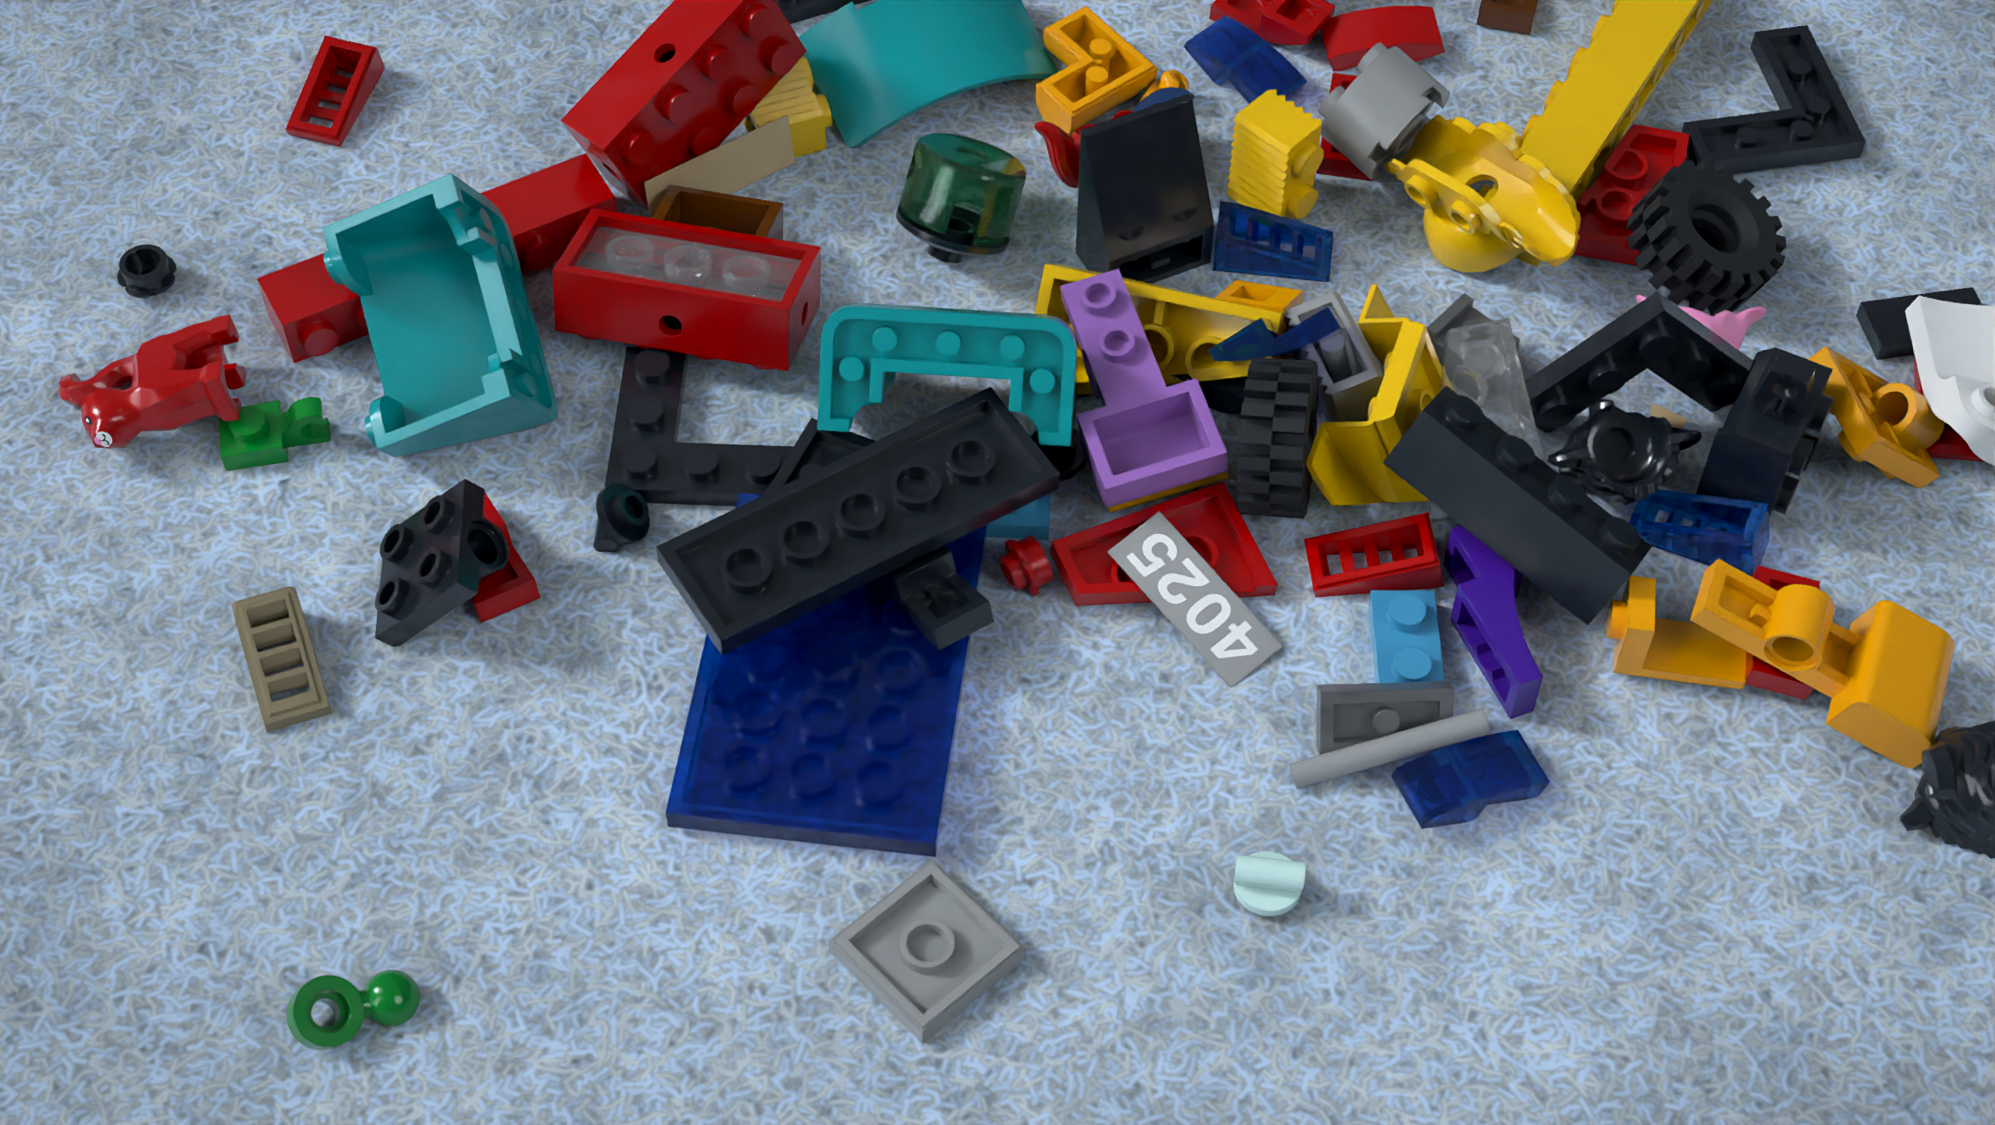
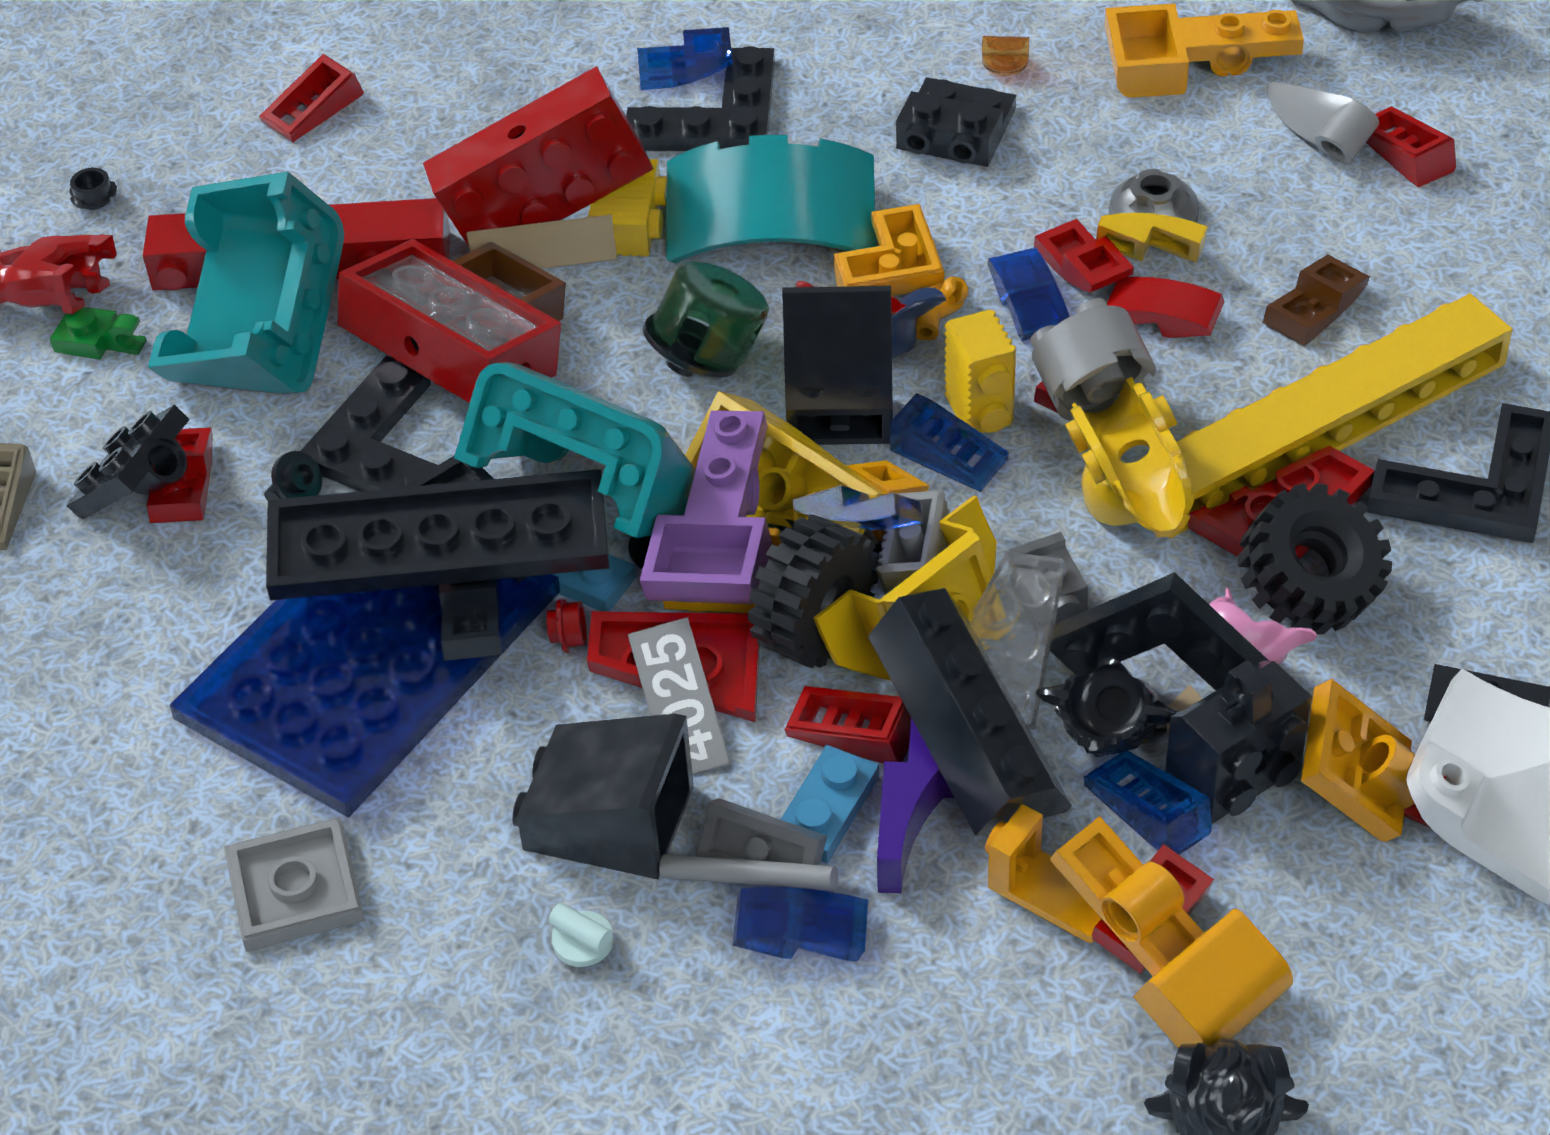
camera: 30 degrees right, 5 degrees down
(1205, 721) = (608, 793): none -> black slope

